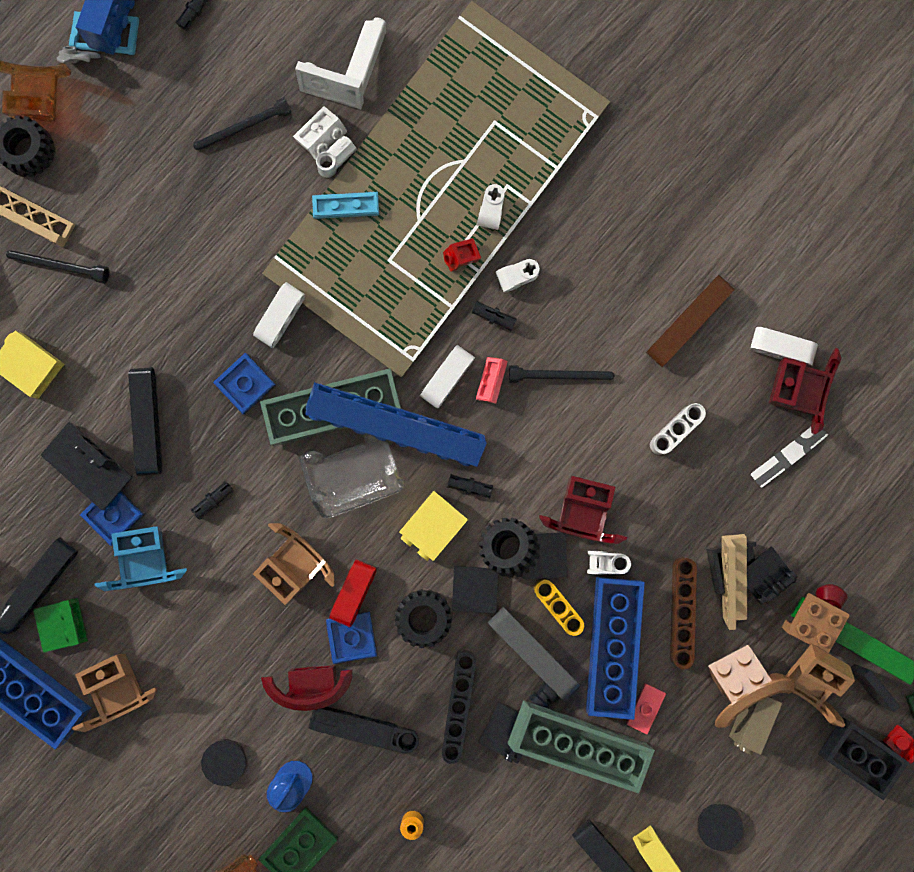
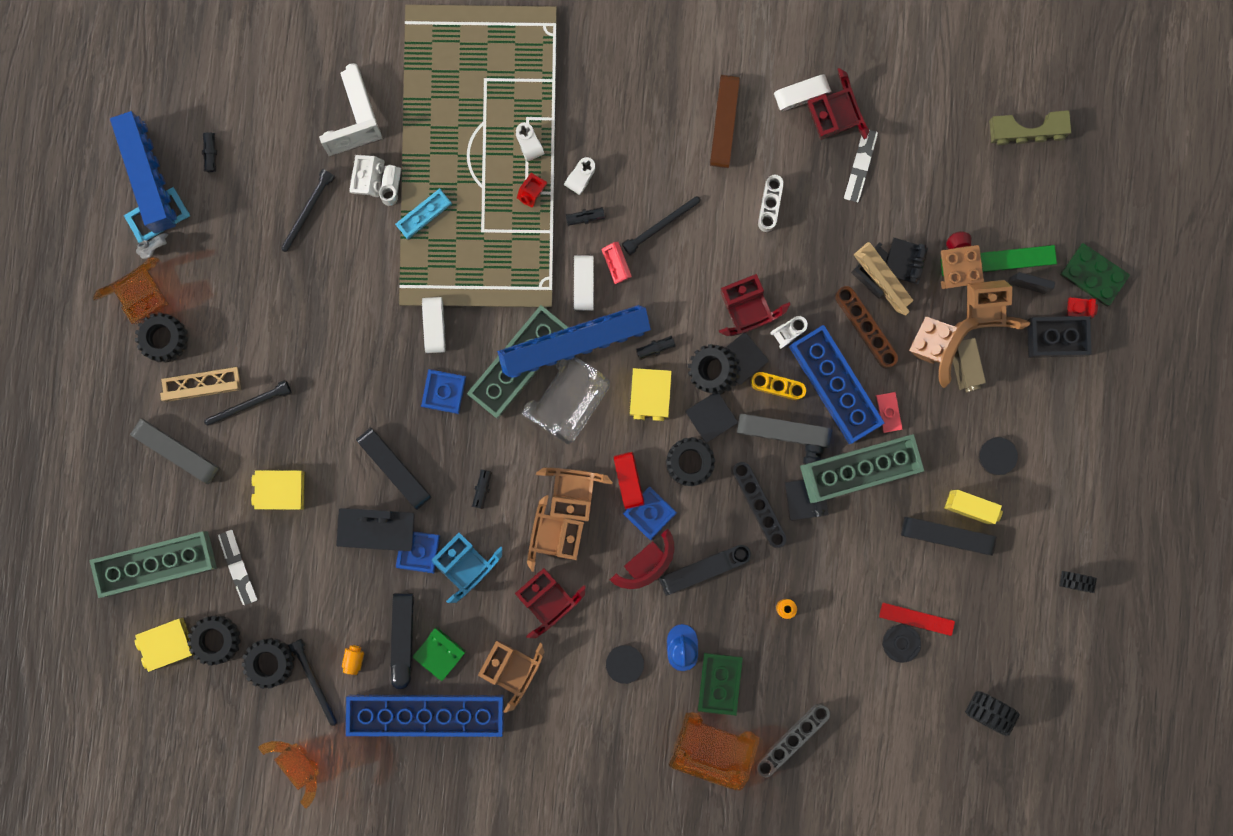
camera: 45 degrees left, 0 degrees up
(193, 649) = (547, 600): none -> dark red piece
(243, 595) = (553, 536): none -> medium nougat piece

